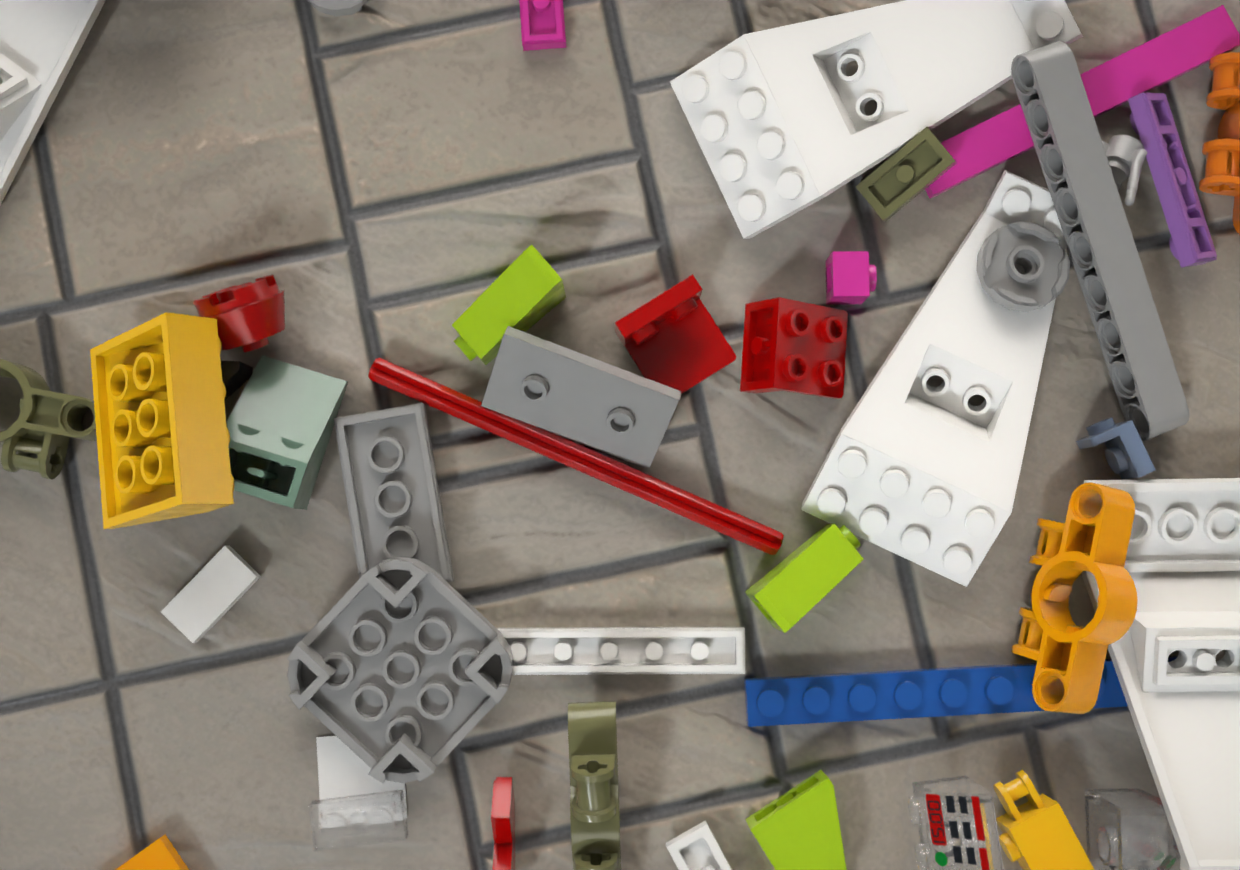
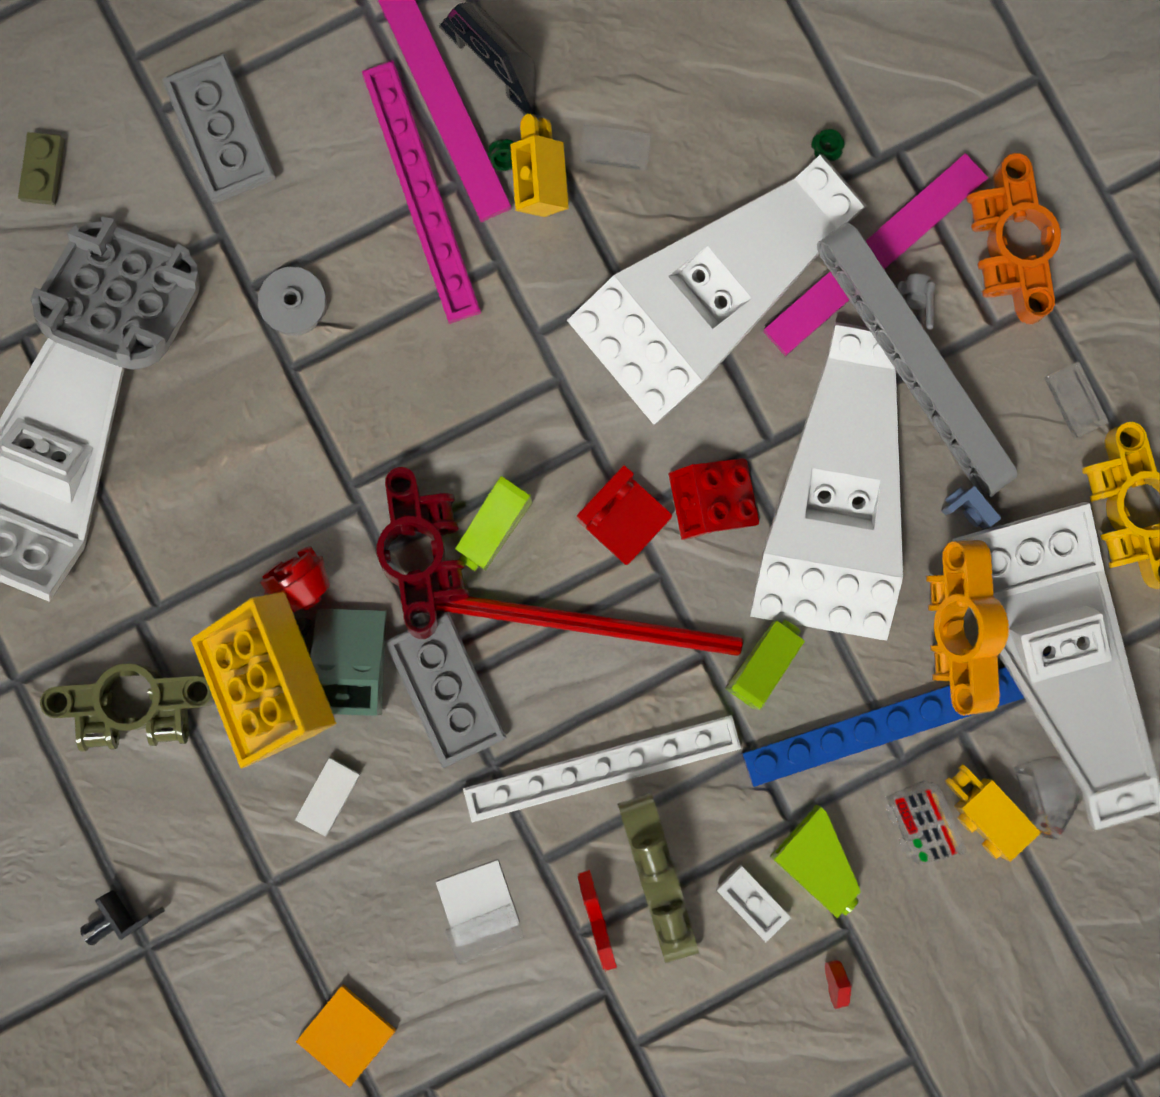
camera: 15 degrees left, 0 degrees up
(401, 669) = (486, 813): light grey tile -> none
(406, 268) = (414, 514): none -> dark red piece
(580, 397) = (565, 577): light grey plate -> none
(849, 277) = (740, 433): dark pink plate -> none
(906, 174) = (762, 345): olive plate -> none
(1039, 255) = (875, 379): light grey plate -> none
(1188, 228) = (961, 296): medium lavender plate -> none

